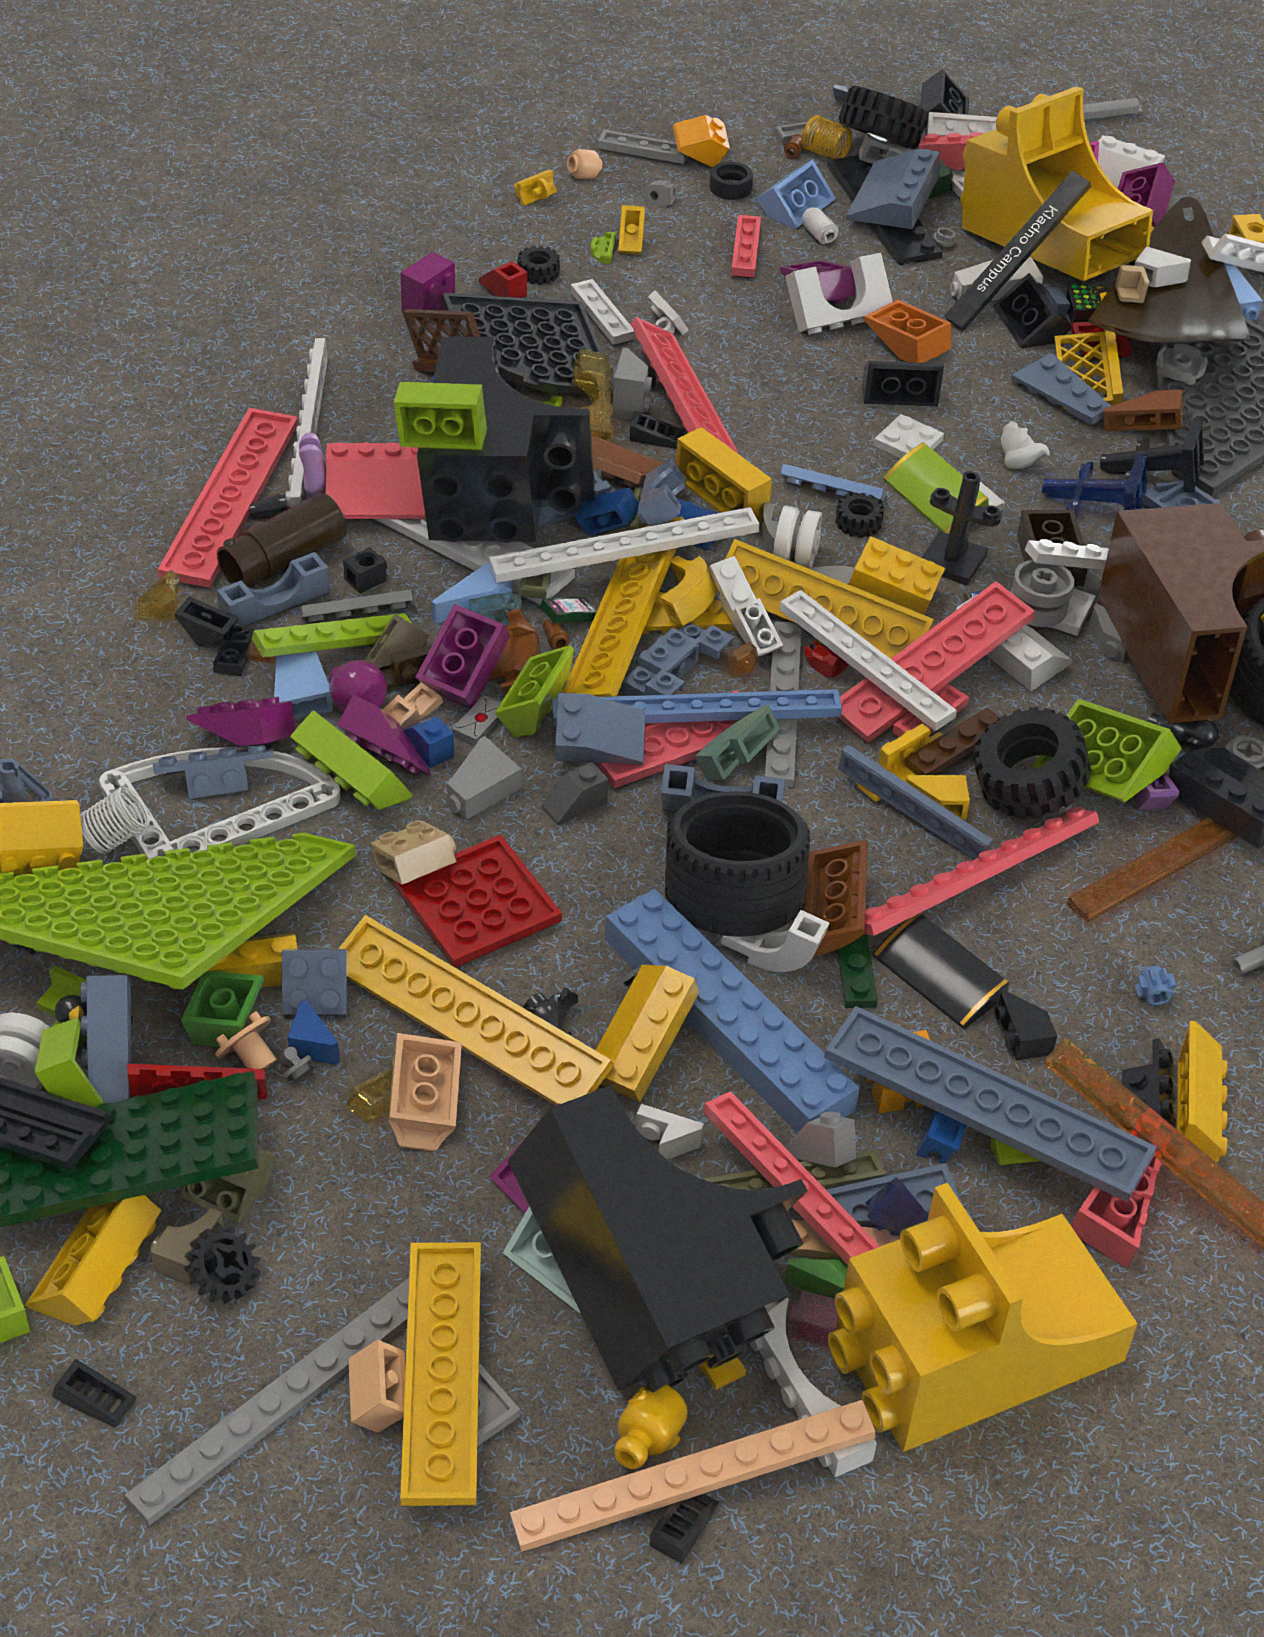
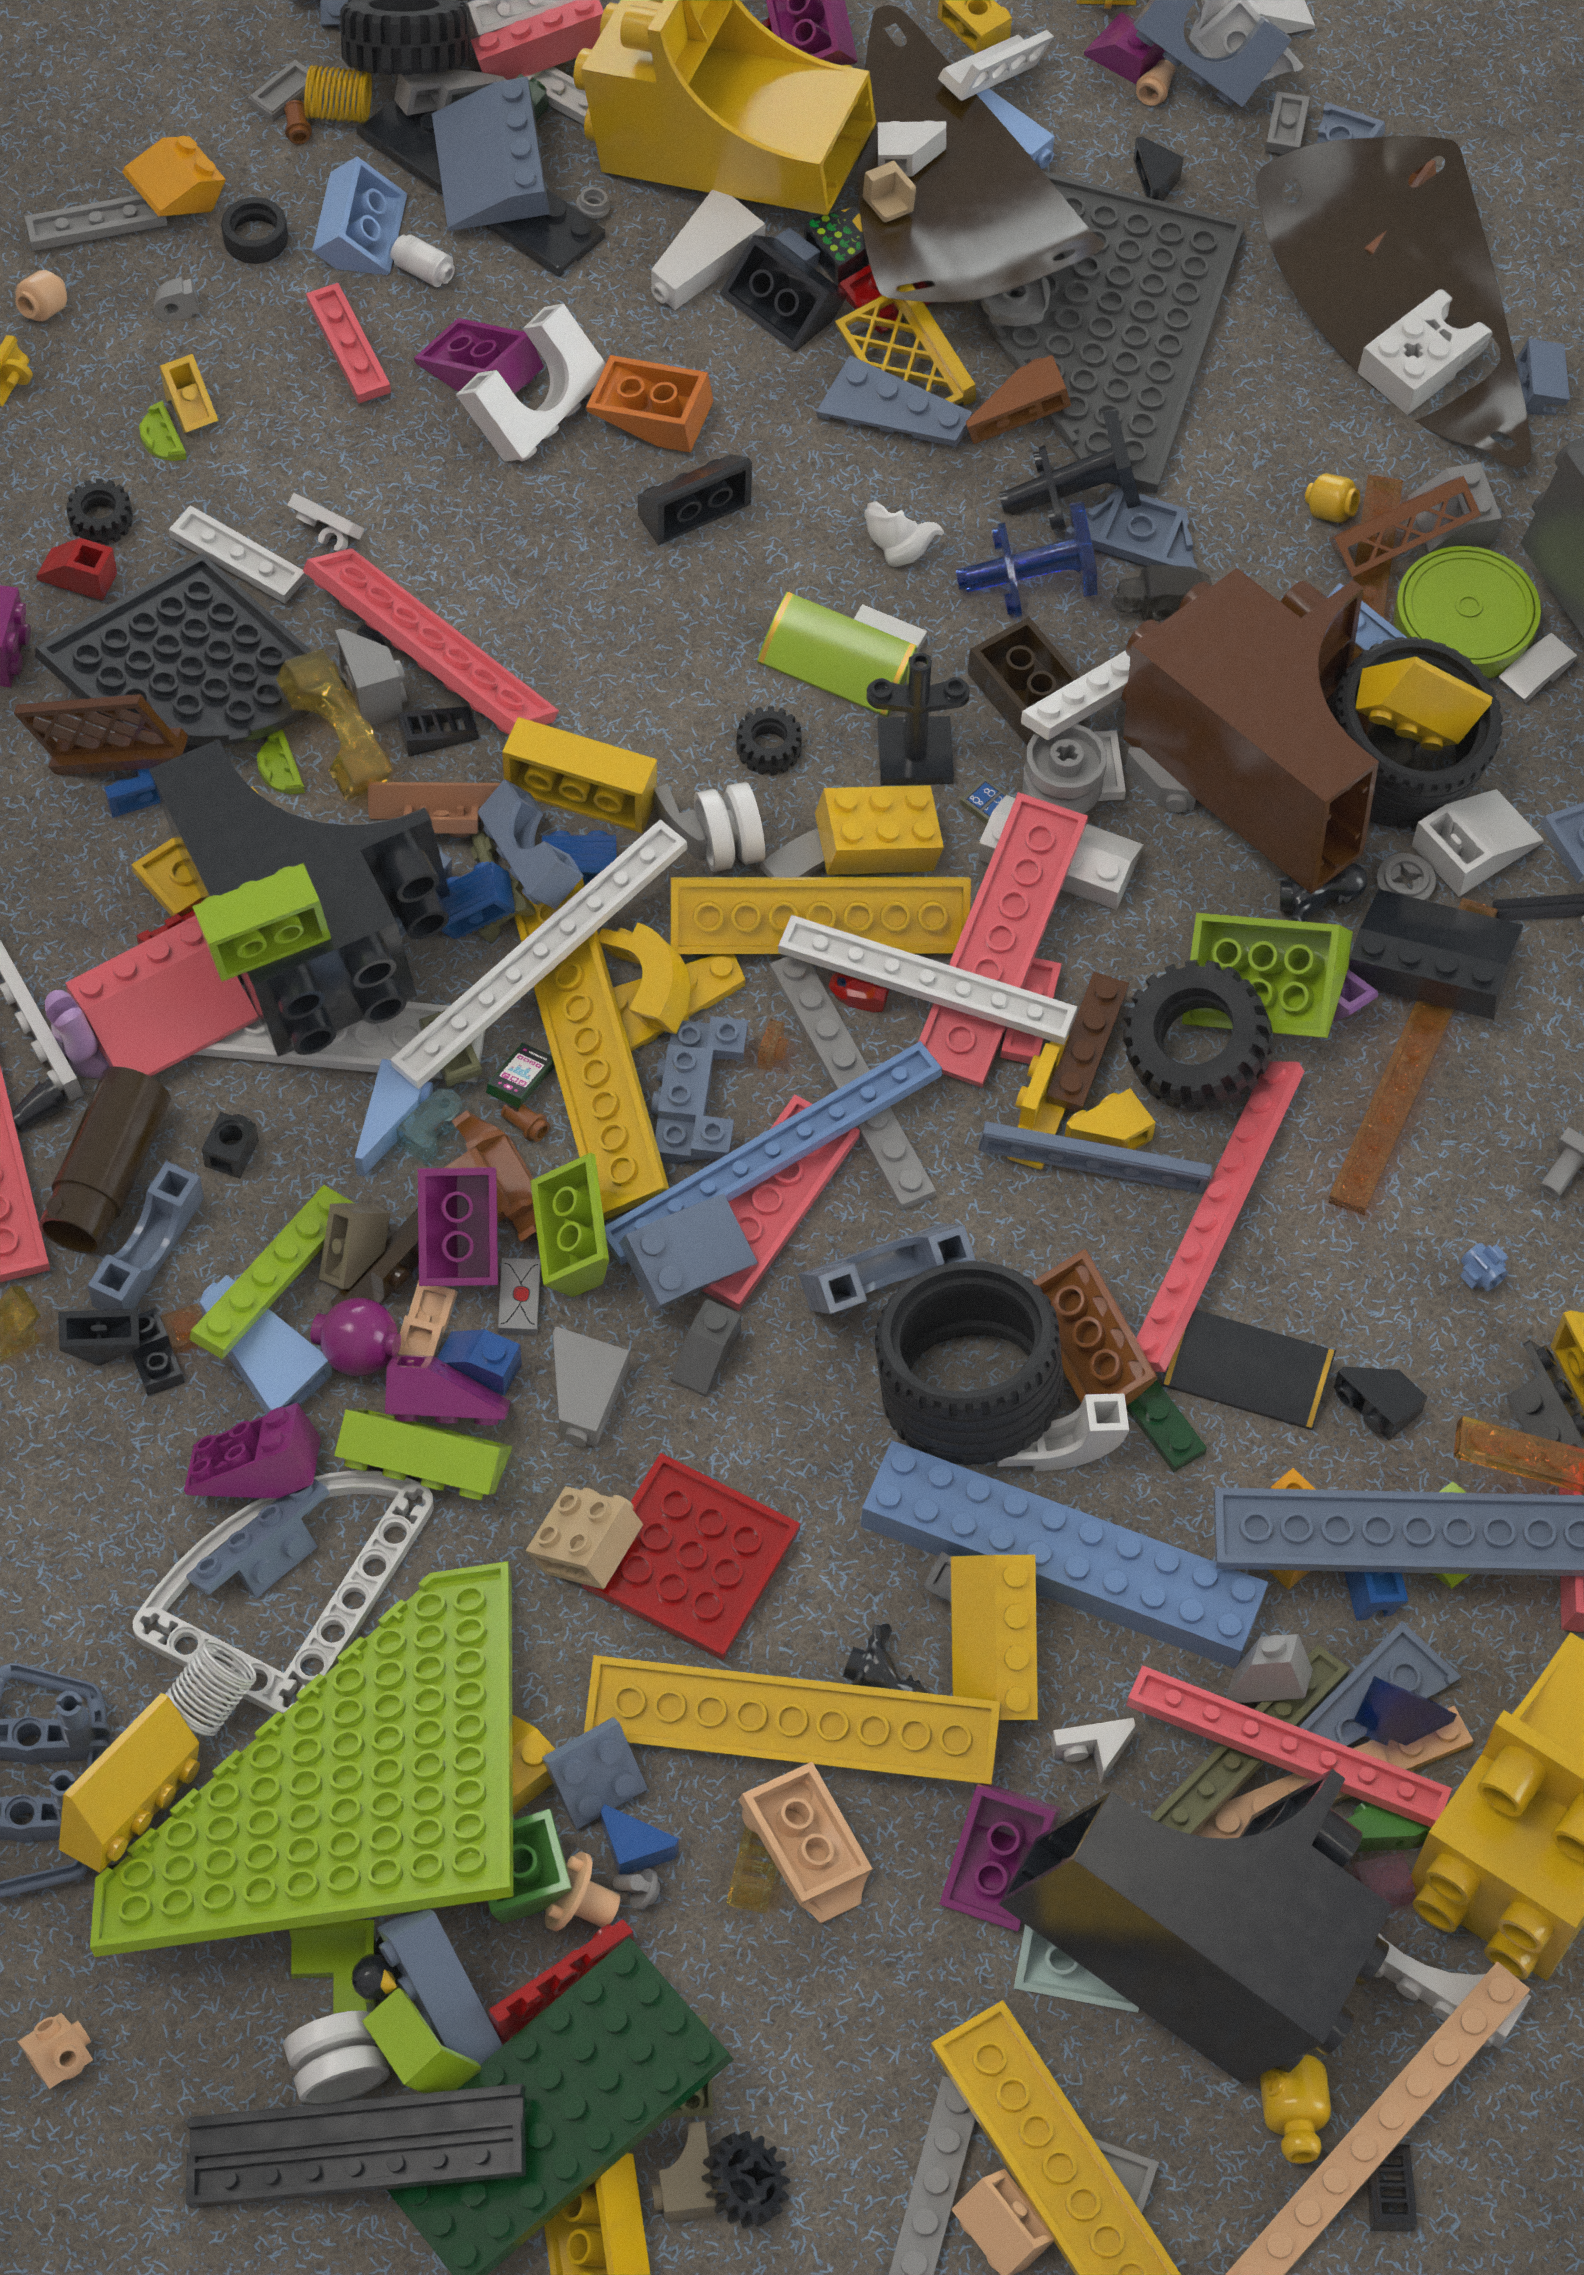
camera: 30 degrees left, 15 degrees up
(344, 607) = (264, 1196): light grey plate -> none
(737, 744) = (848, 1178): sand green slope -> none
(743, 608) = (735, 973): white slope -> none
(822, 481) = (692, 709): light blue plate -> none
(906, 434) = (750, 581): white plate -> none
(1018, 250) = (732, 215): black tile -> none

